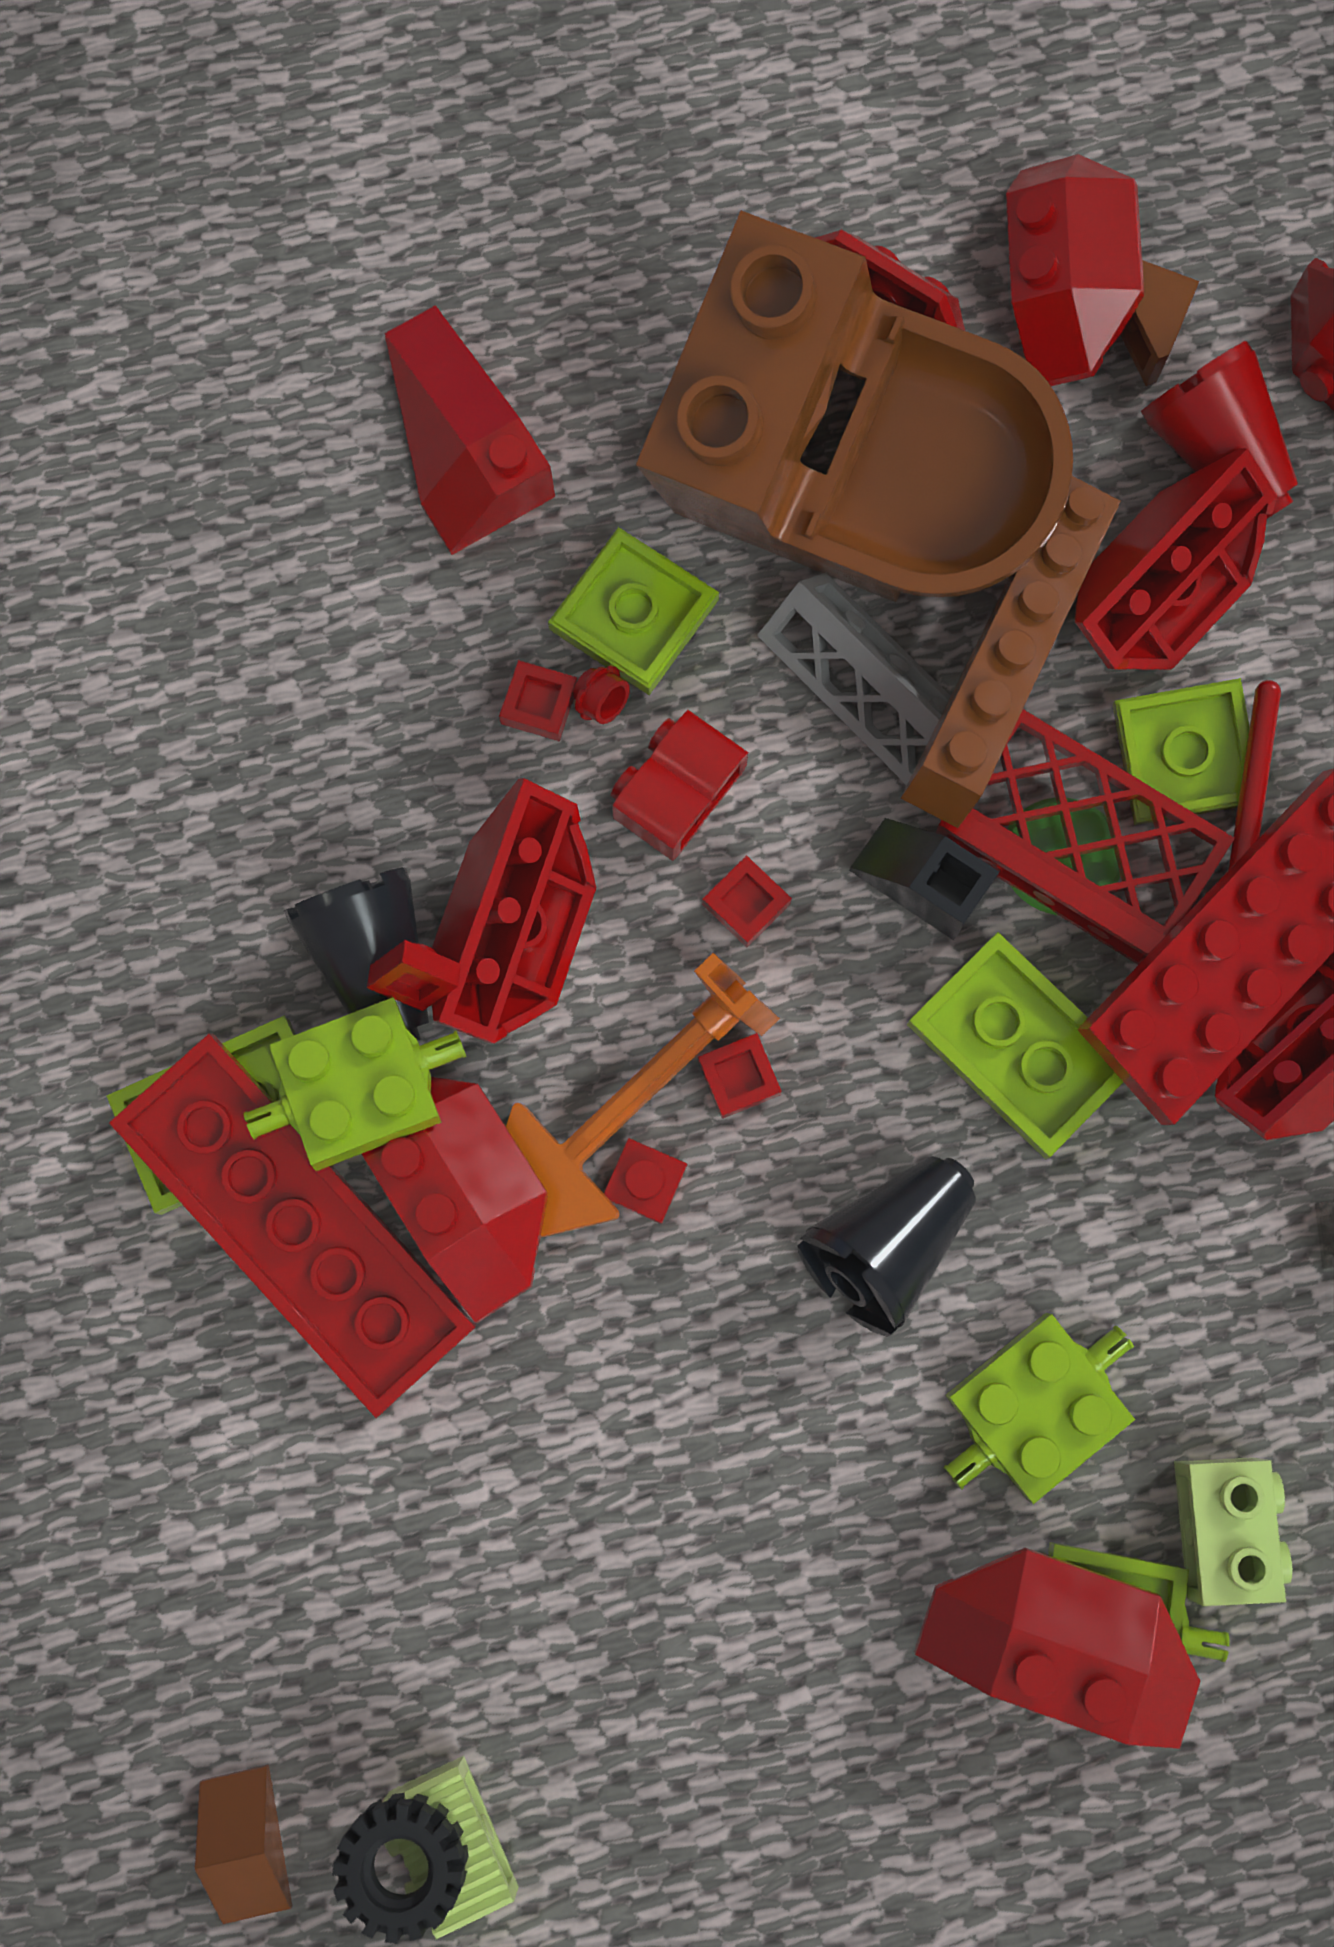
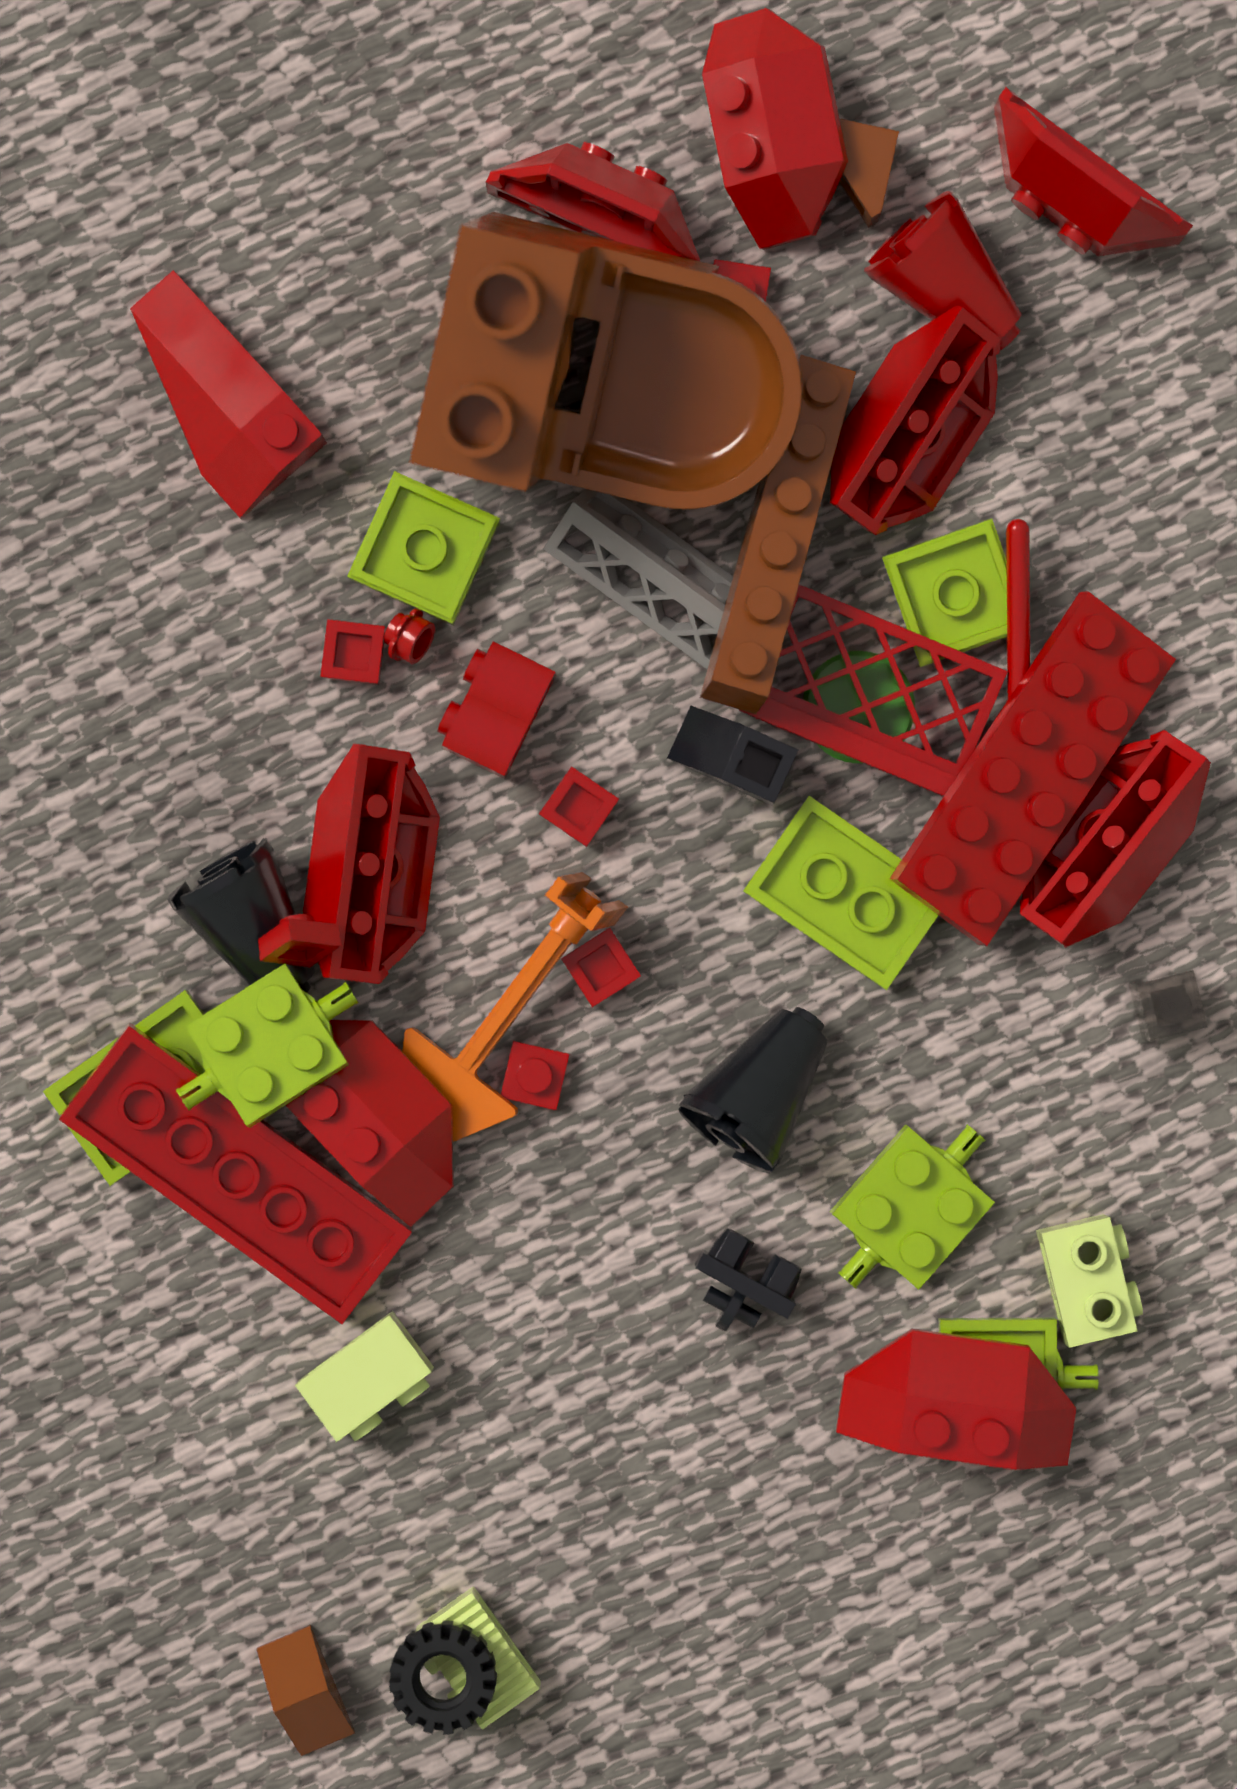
camera: 10 degrees left, 10 degrees up
(387, 1484) = (365, 1378): none -> yellowish green brick
(868, 1471) = (724, 1265): none -> black hips

